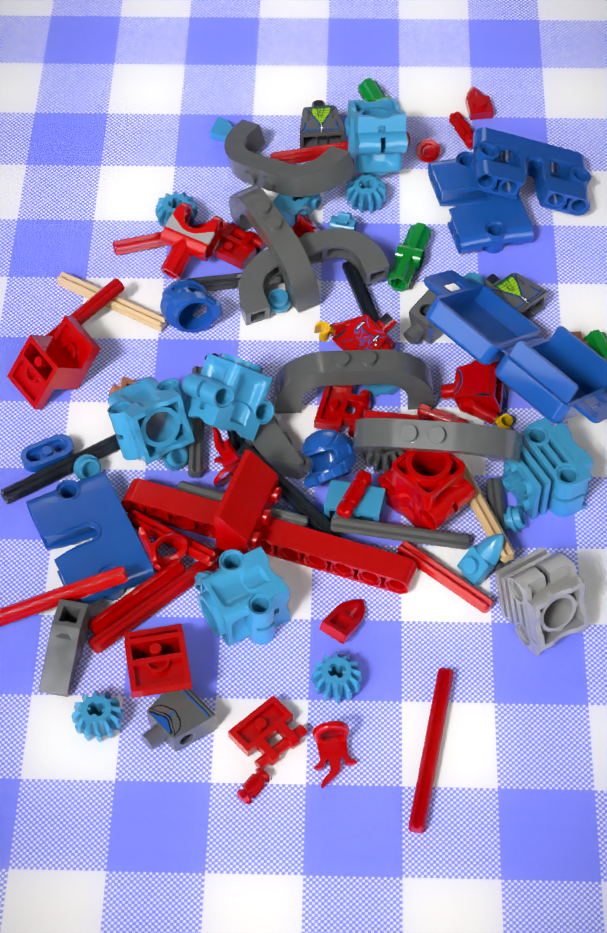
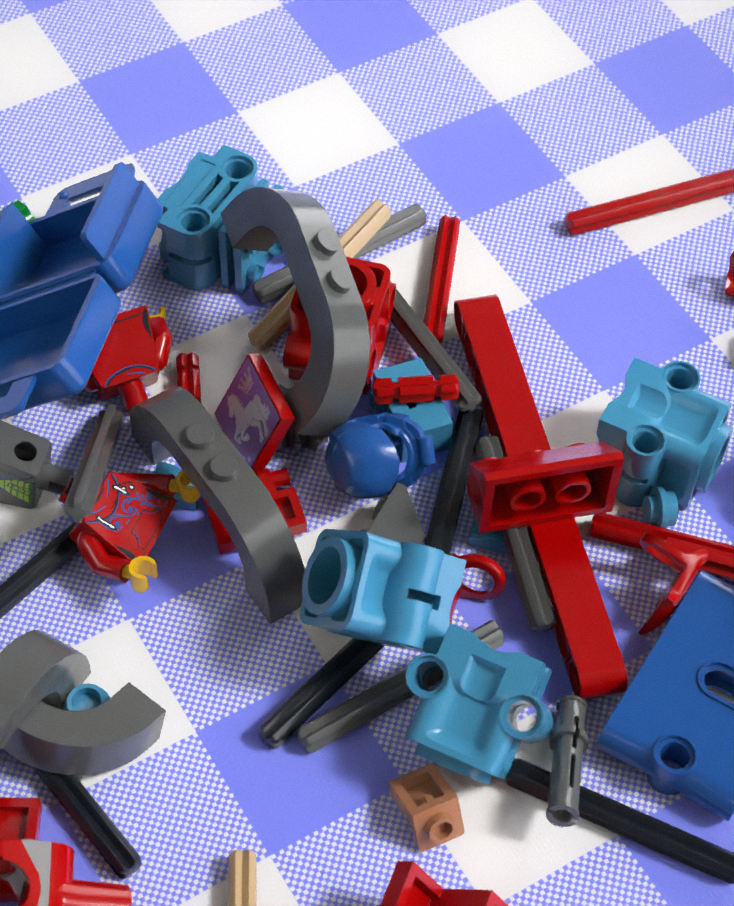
camera: 125 degrees left, 0 degrees up
(46, 452) = (620, 854): blue plate -> none
(86, 466) = (603, 776): dark azure plate -> none
(126, 474) = (568, 745): none -> dark grey pin
(156, 529) = (630, 586): red axle -> none
(182, 300) = (202, 827): blue helmet -> none
(336, 677) = (671, 309): dark azure gear -> none
(344, 620) = (590, 341): red plate -> none
(400, 335) = (94, 464): none -> dark grey axle
(481, 559) = (399, 240): dark azure plate -> none
(542, 598) = (425, 144): light grey piece -> none

